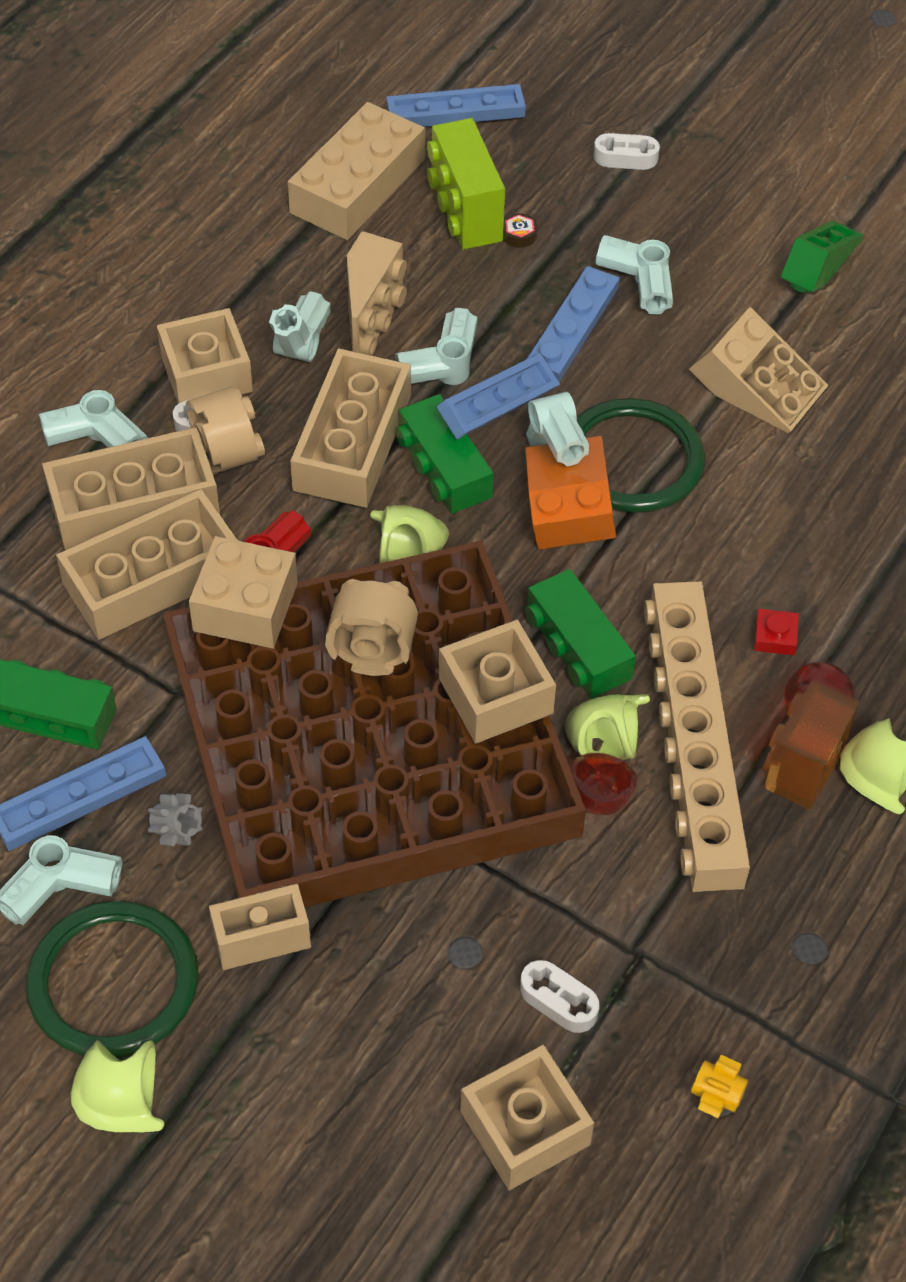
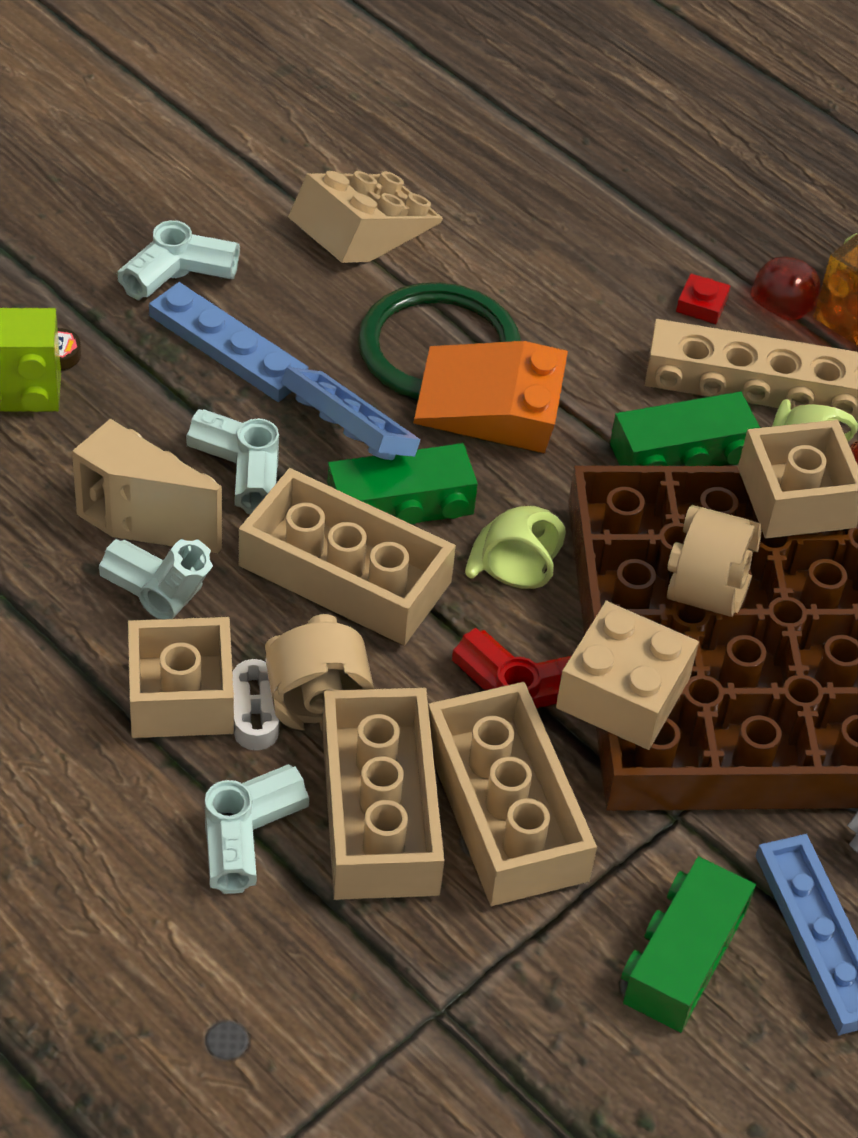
camera: 80 degrees left, 5 degrees down
(555, 423) = (416, 365): light aqua piece -> none
(819, 255) = (217, 120): green slope -> none

